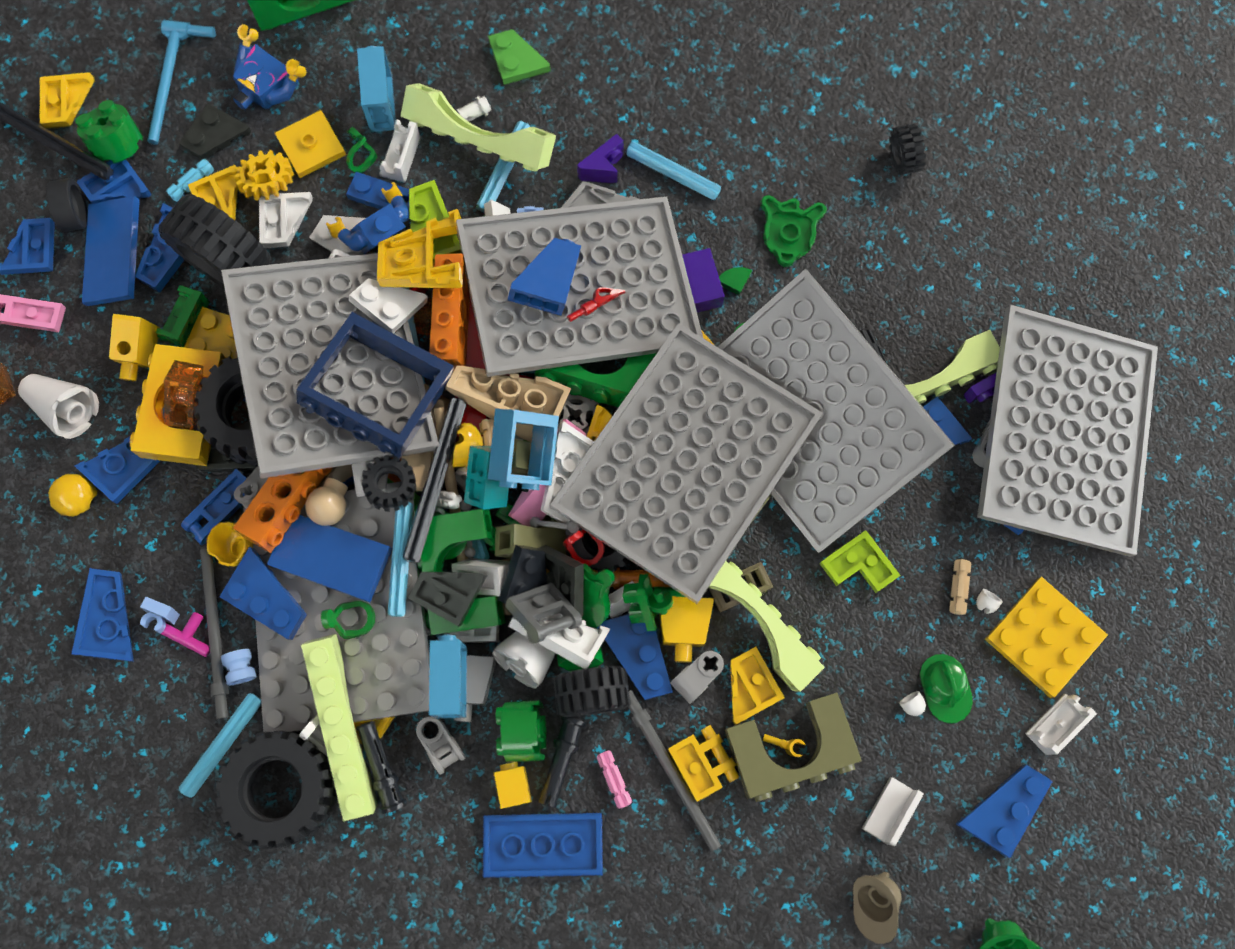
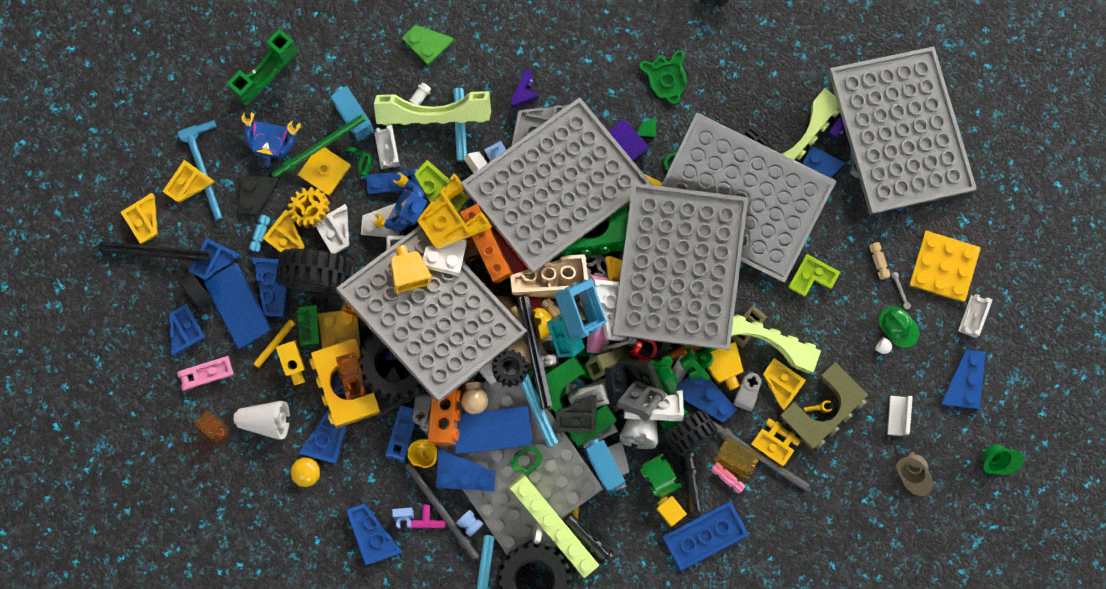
camera: 25 degrees left, 5 degrees up
(109, 132) = (193, 228): green brick -> none
(137, 80) = (187, 182): none -> yellow wing
(142, 312) = (274, 343): none -> yellow bar
(271, 115) = (290, 165): none -> green bar
(323, 293) = (408, 270): none -> yellow torso
(393, 348) = (472, 284): dark blue window -> none
(440, 745) = (615, 508): light grey piece -> none
(547, 278) = (539, 193): blue slope -> none
(598, 301) = (574, 192): red hand -> none
(639, 758) = (737, 458): none -> clear yellow hinge
(673, 170) = (571, 73): medium azure axle -> none
(970, 664) = (906, 305): none -> light grey hinge
(988, 601) = (900, 261): white hinge -> none

